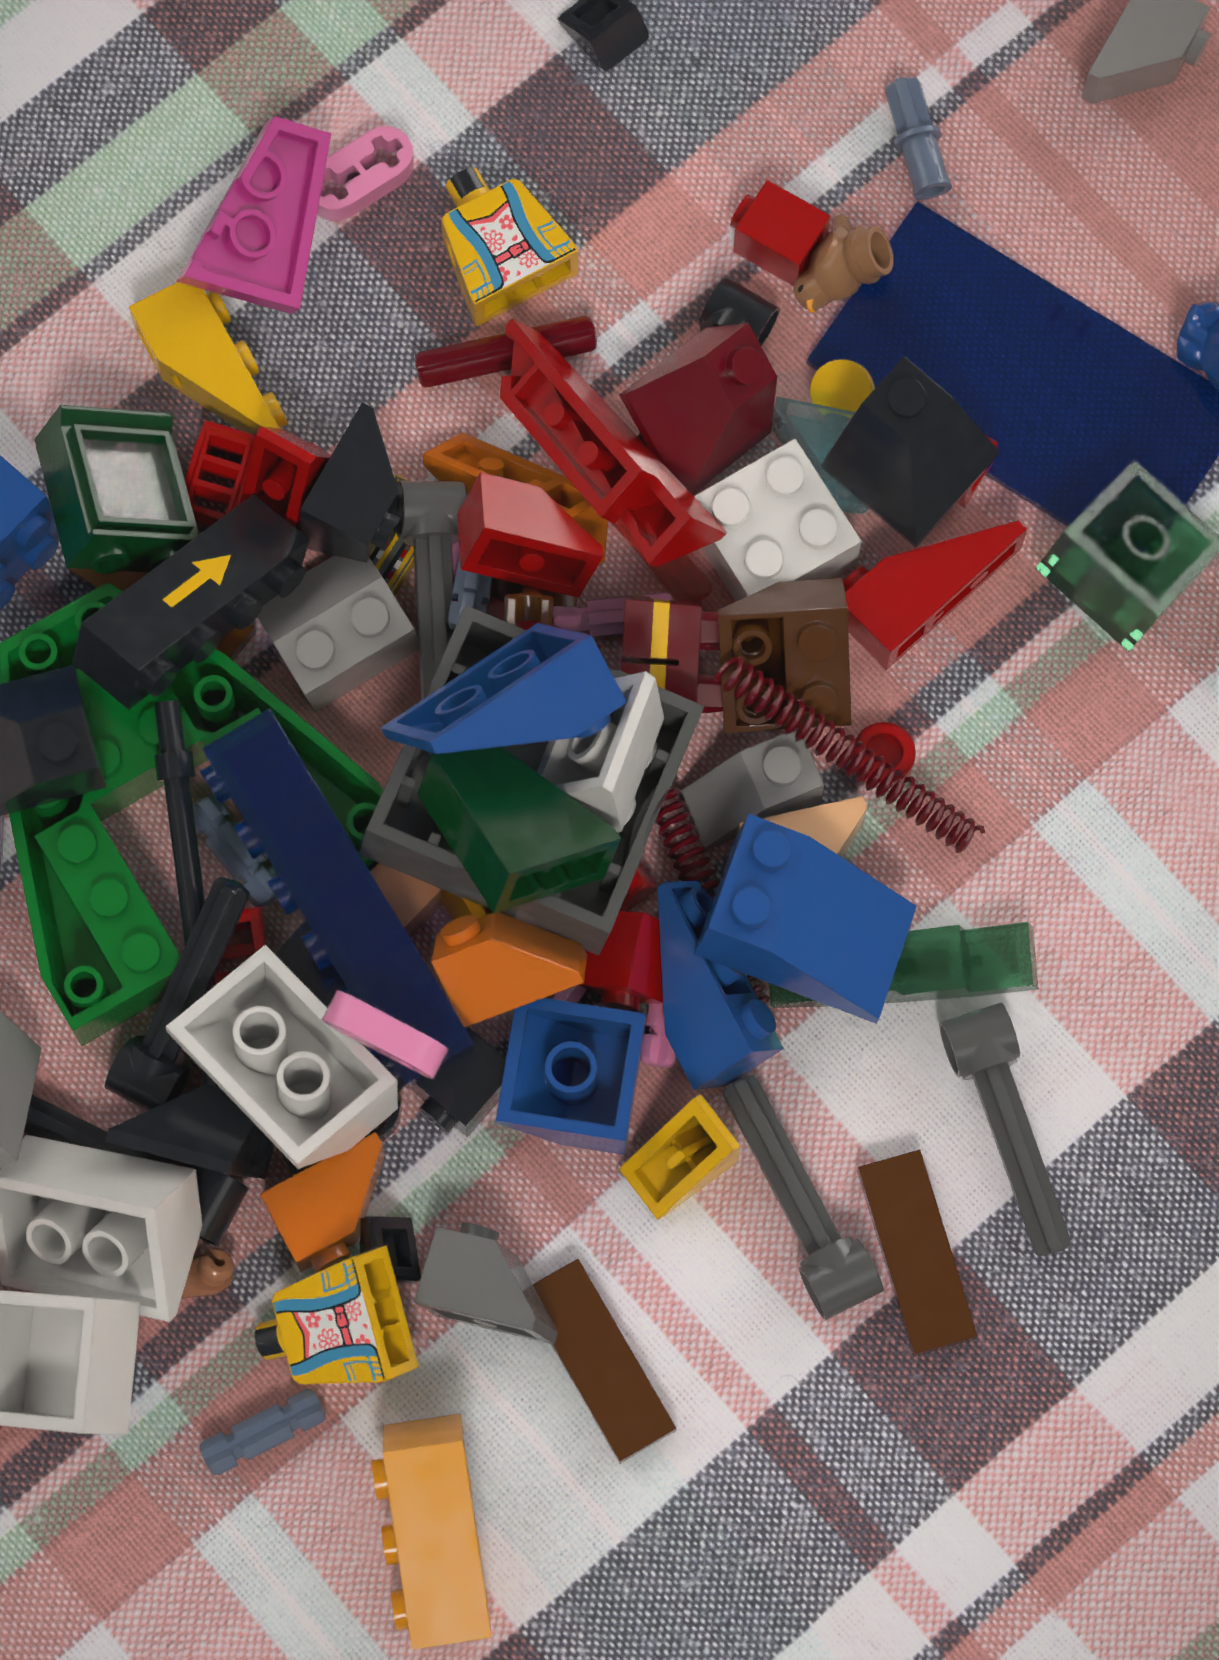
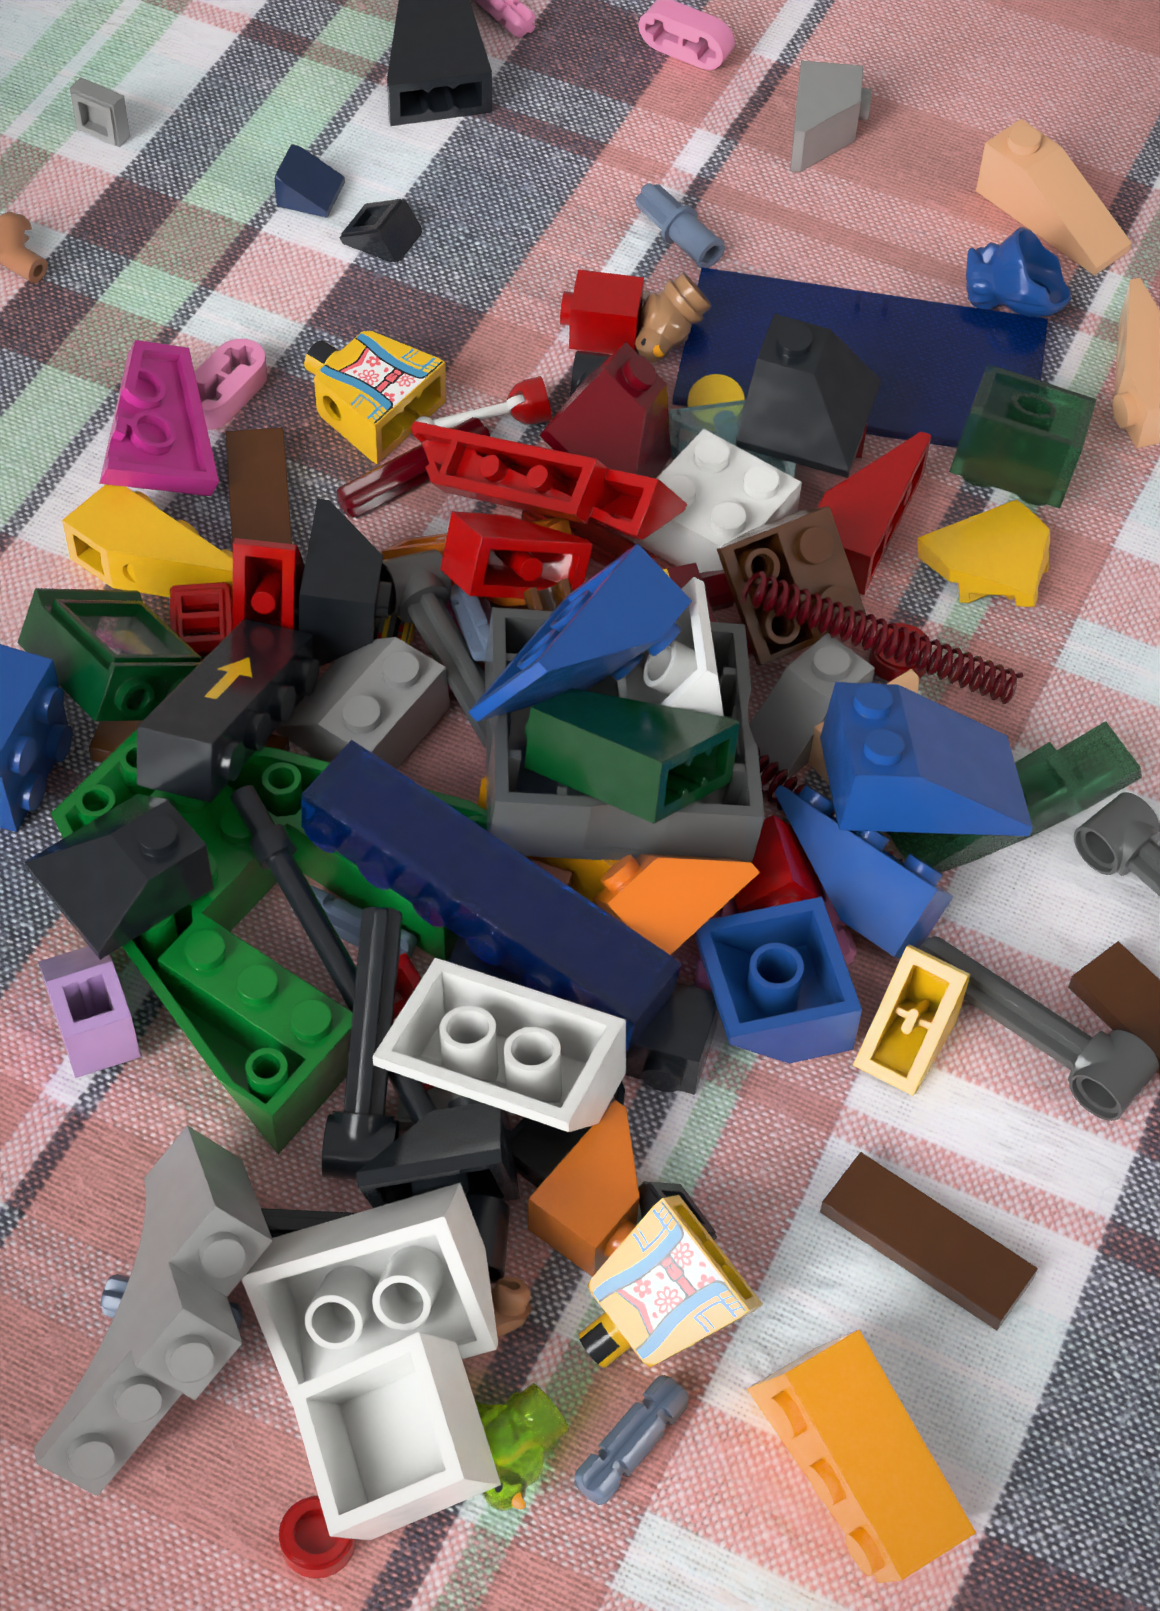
camera: 25 degrees left, 20 degrees down
(163, 1395) = (517, 1440): none -> clear neon green animal
(338, 335) = (258, 485): none -> reddish brown tile
(385, 1034) = (598, 973): bright pink beam -> none
(481, 1285) = (789, 1205): dark grey slope -> none
(650, 315) = (525, 403): none -> hinge
(1031, 679) = (991, 554): none -> yellow slope

